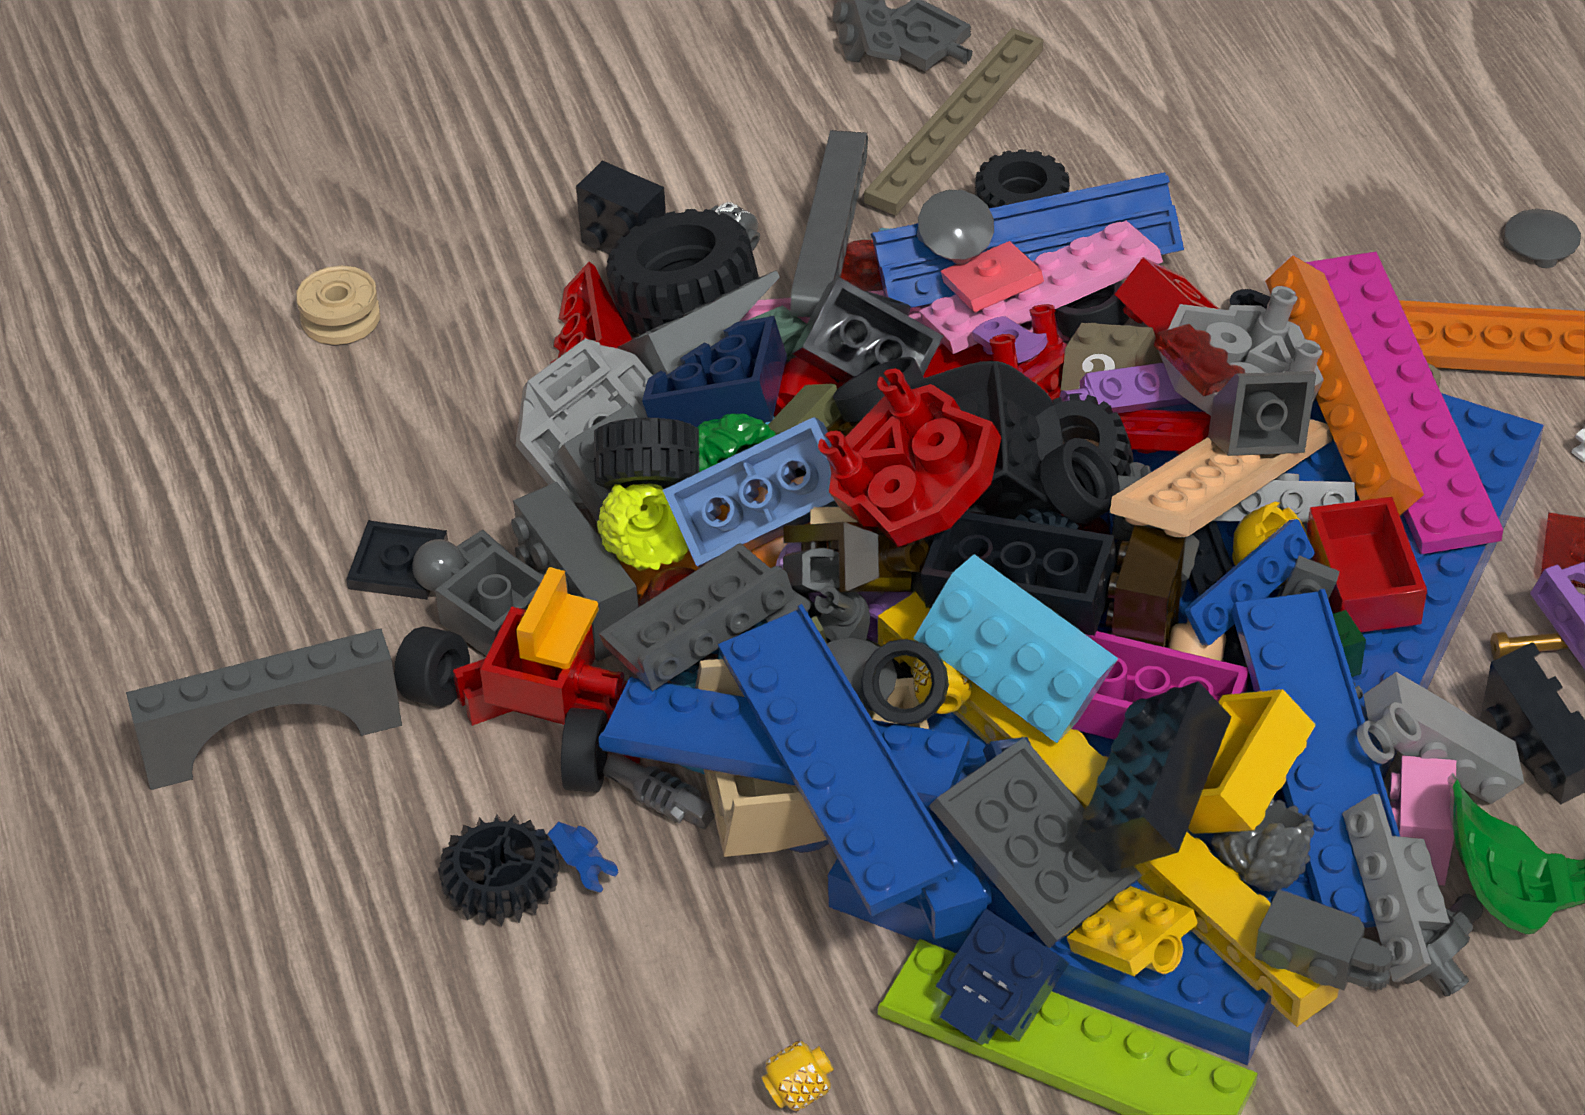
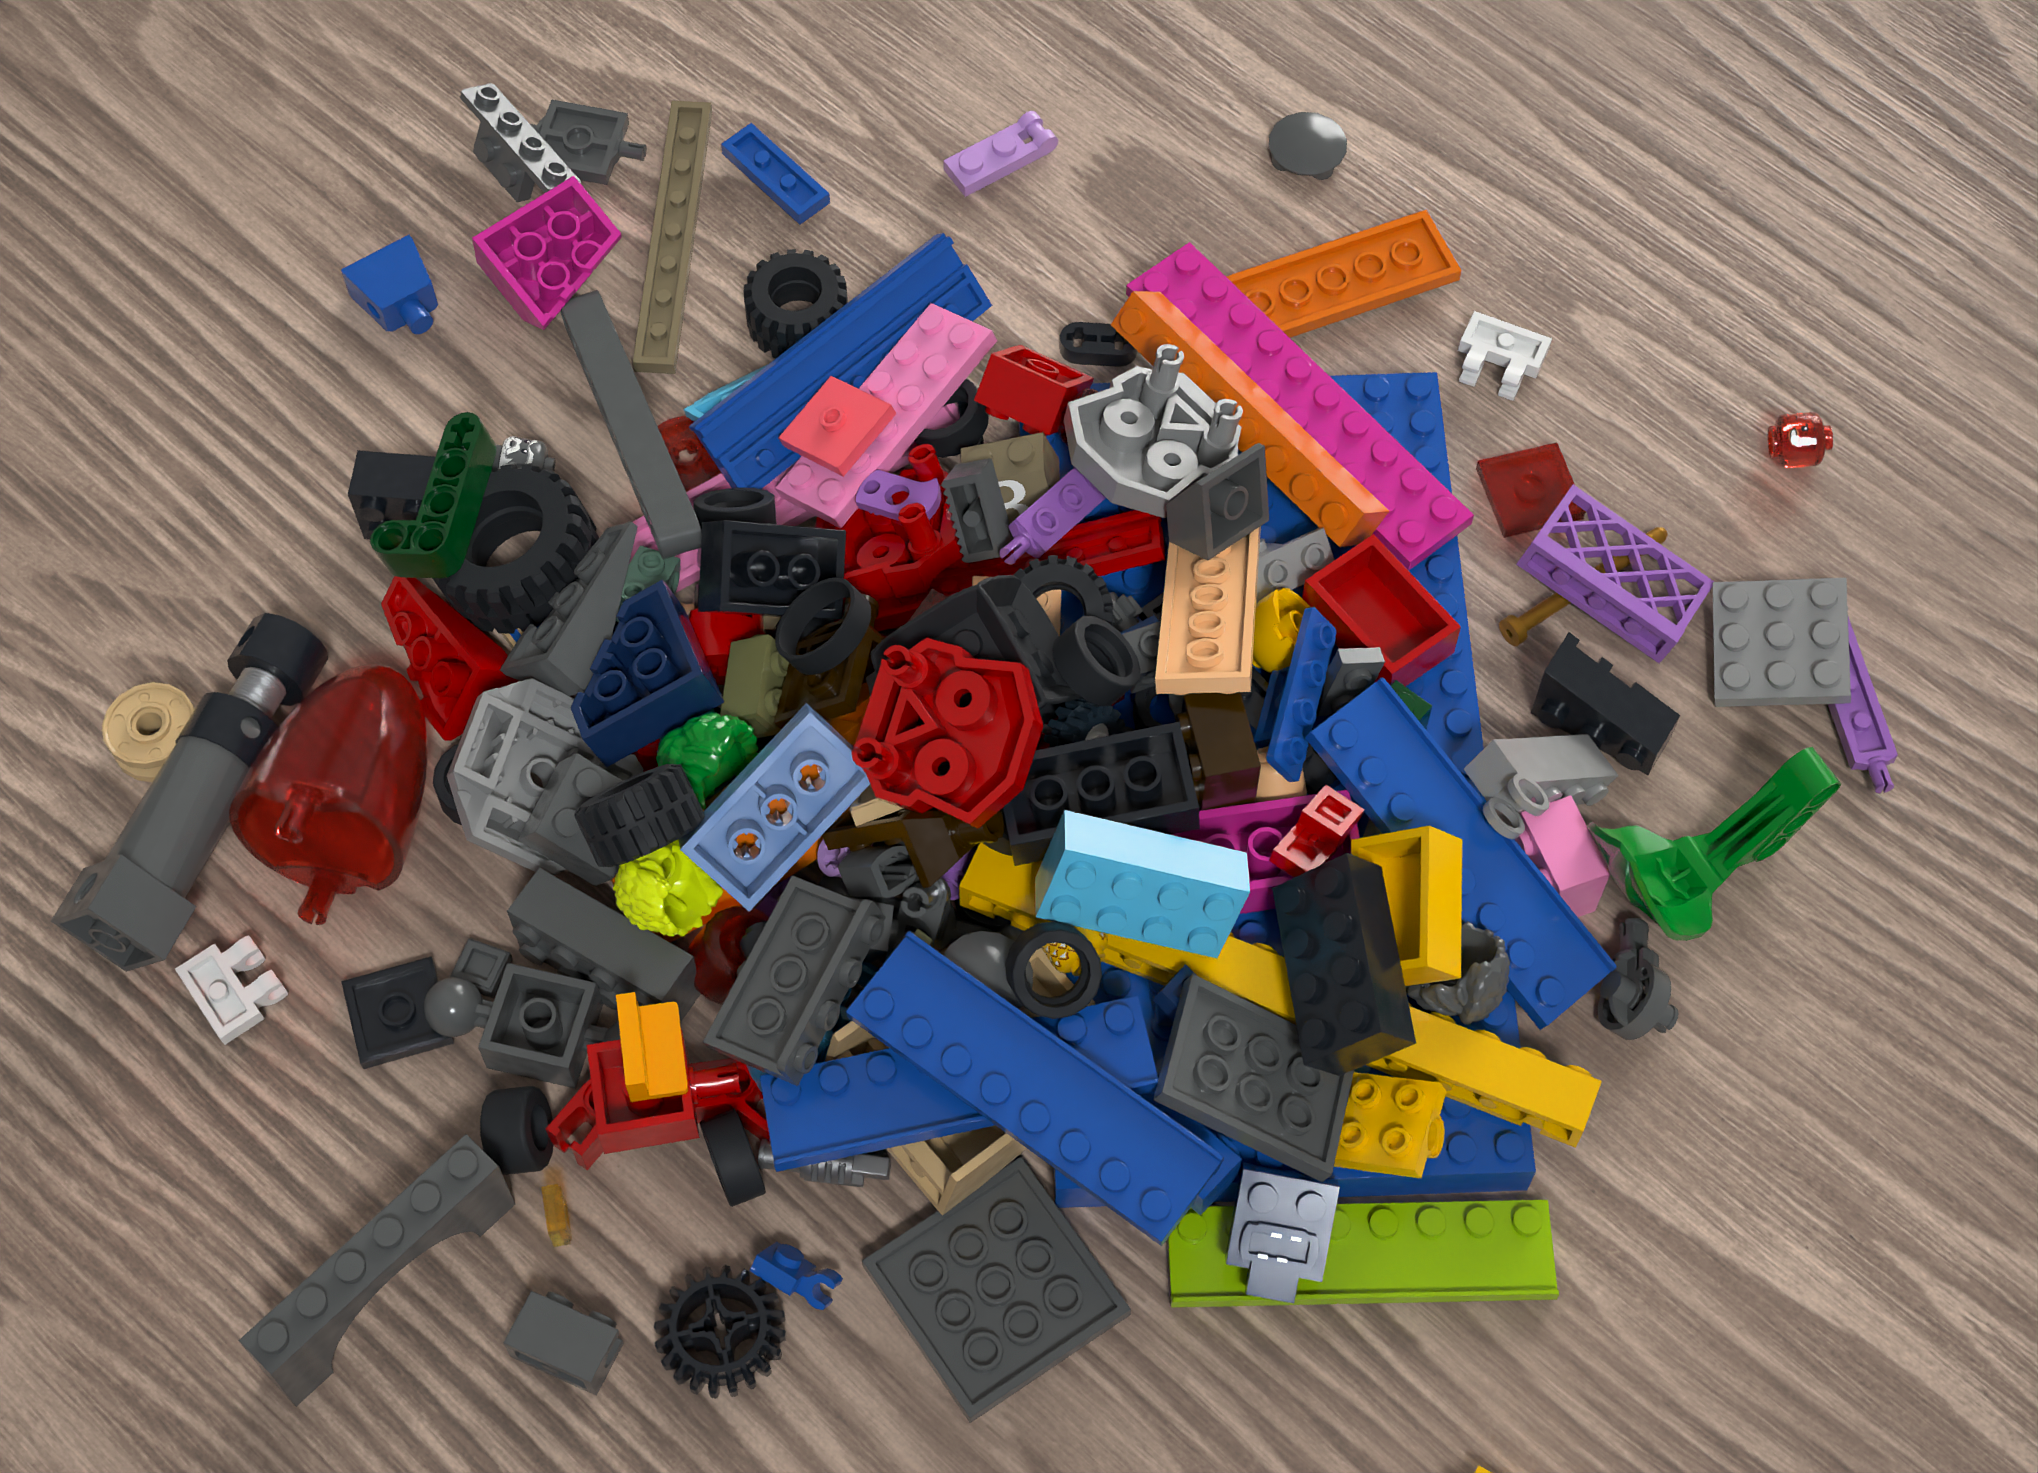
camera: 30 degrees left, 15 degrees up
(274, 491) = (220, 993): none -> white plate
(368, 331) = (135, 898): none -> dark grey piece
(374, 825) = (564, 1341): none -> dark grey brick
(425, 738) = (556, 1215): none -> clear yellow tile
(442, 378) = (338, 787): none -> clear red windscreen
(643, 218) = (449, 509): none -> dark green beam
(711, 79) = (393, 287): none -> blue torso
(739, 936) = (996, 1289): none -> dark grey plate
(797, 1075) = (1142, 1419): yellow head -> none
(843, 88) = (546, 250): none -> dark pink wedge
(955, 225) = (776, 385): dark grey dish -> none
(1063, 356) = (977, 510): none -> dark grey brick
(1066, 106) = (775, 173): none -> blue plate
(1196, 359) = (1127, 465): clear red plate -> none
(1215, 672) = (1317, 833): none -> red slope
(1267, 155) = (1000, 154): none -> lavender plate
(1321, 944) = (1578, 1069): dark grey hinge -> none
(1397, 884) = (1591, 958): light grey bracket -> none

